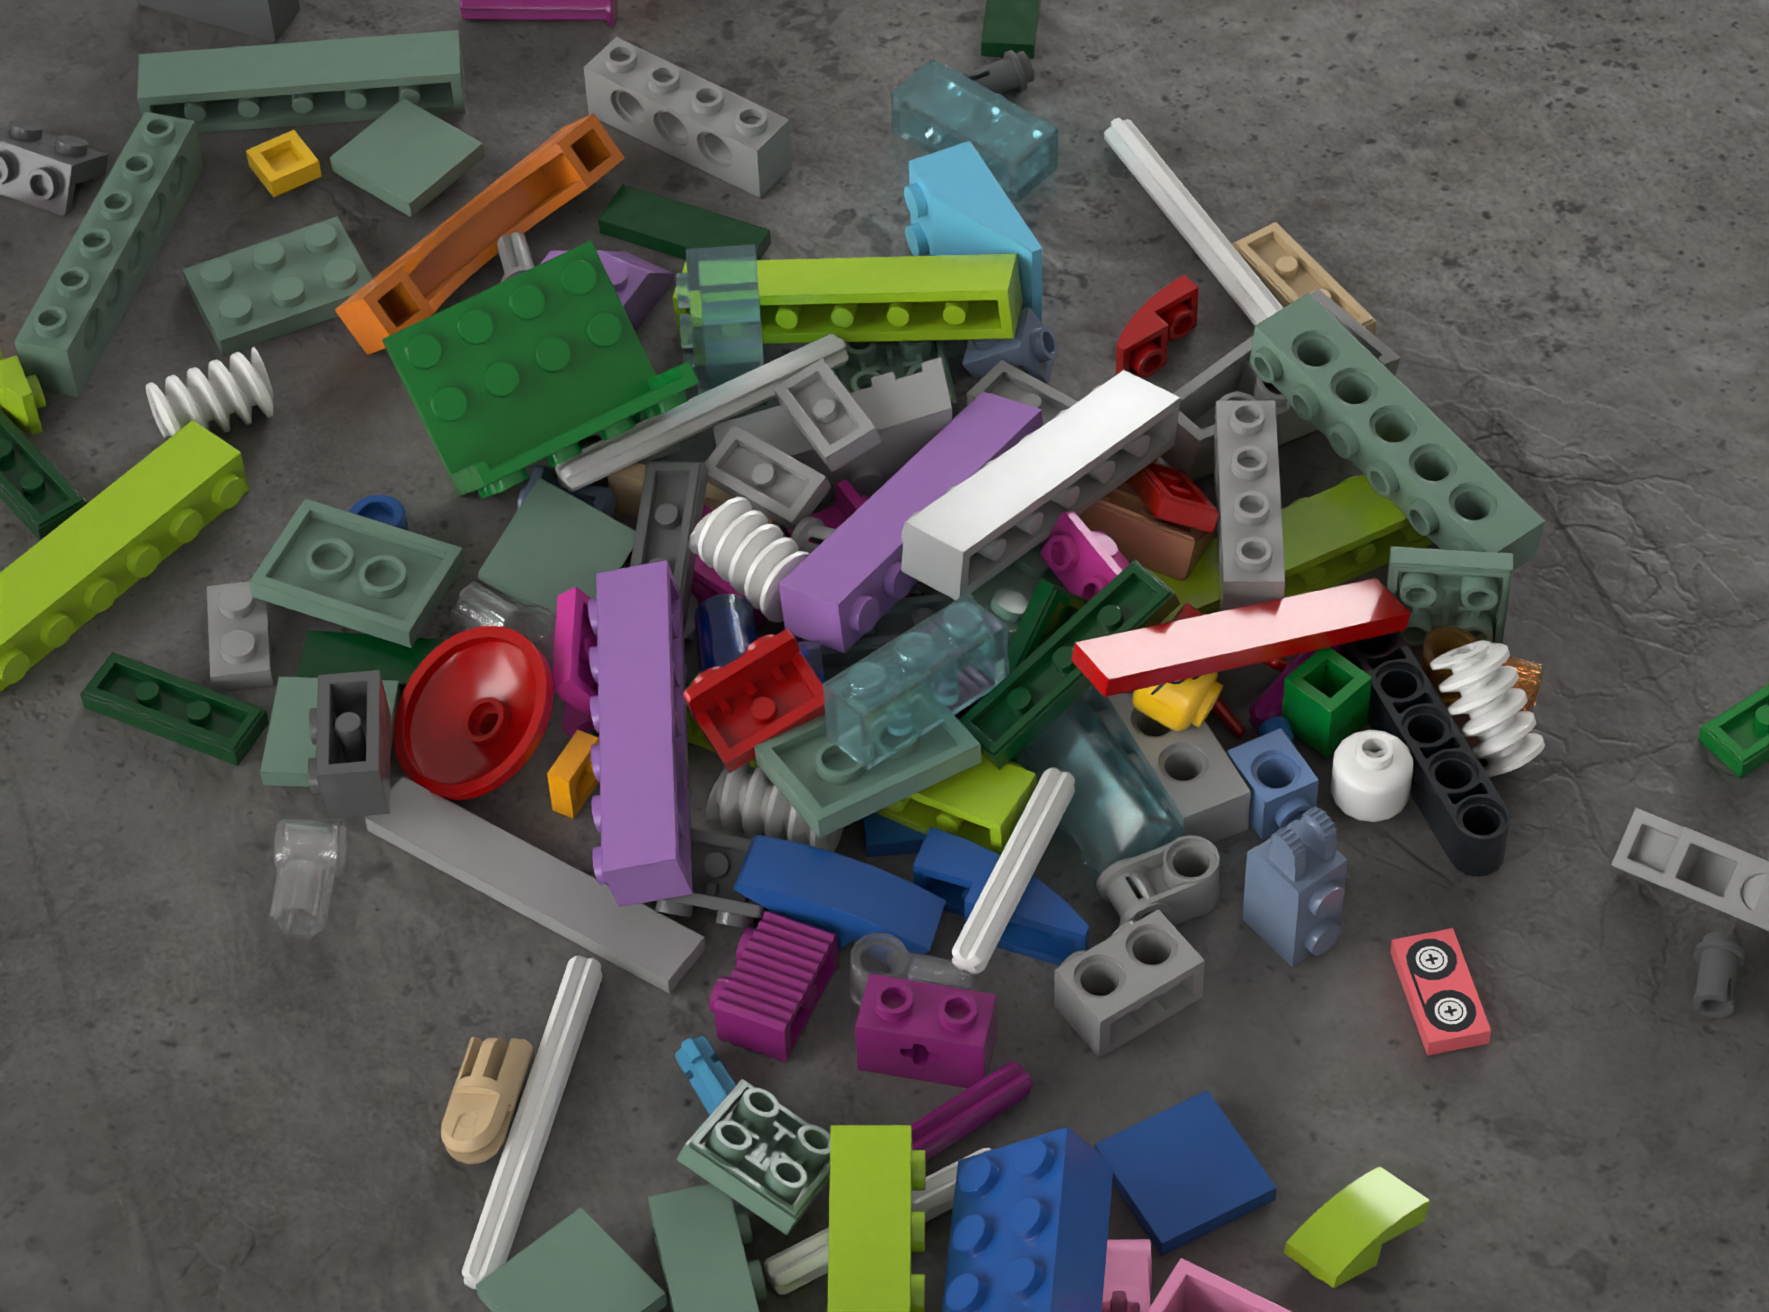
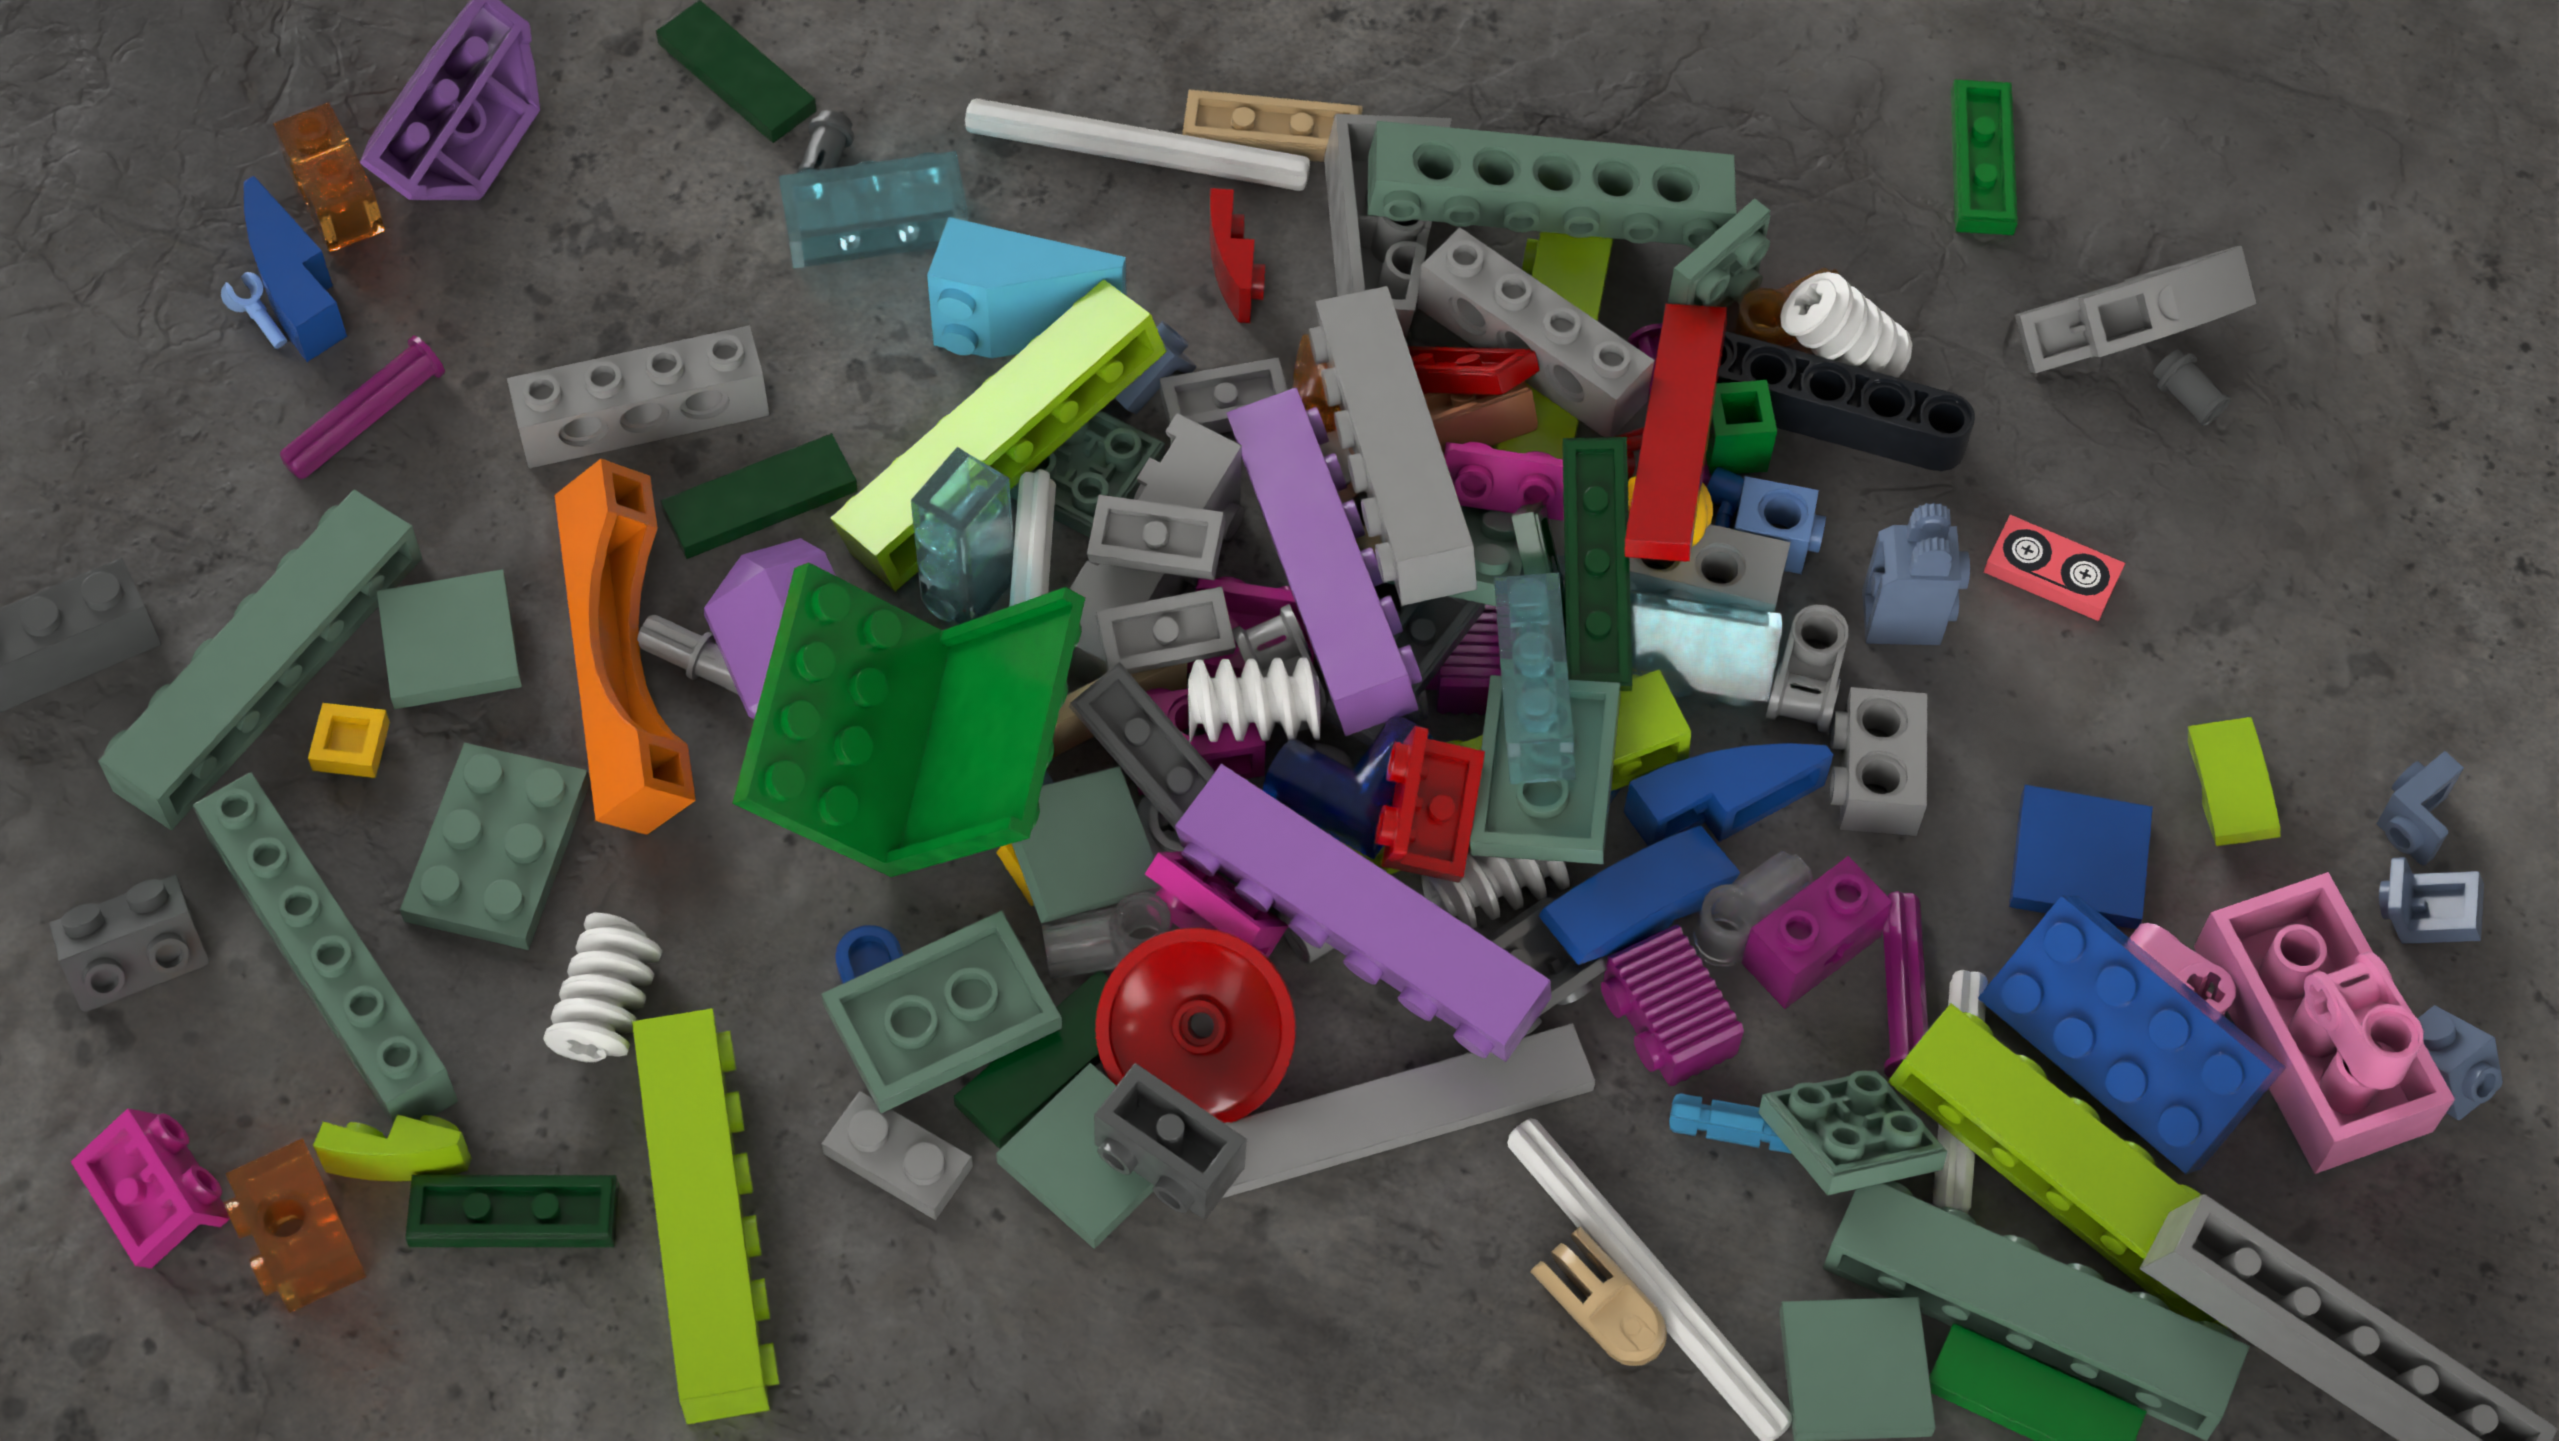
camera: 55 degrees left, 10 degrees up
(175, 708) = (933, 1263): dark green tile -> none
(306, 862) = (1222, 1265): clear piece -> none
(572, 775) = (1317, 999): light orange tile -> none
(1013, 871) = (1738, 755): white axle -> none
(1371, 775) = (1832, 454): white head -> none

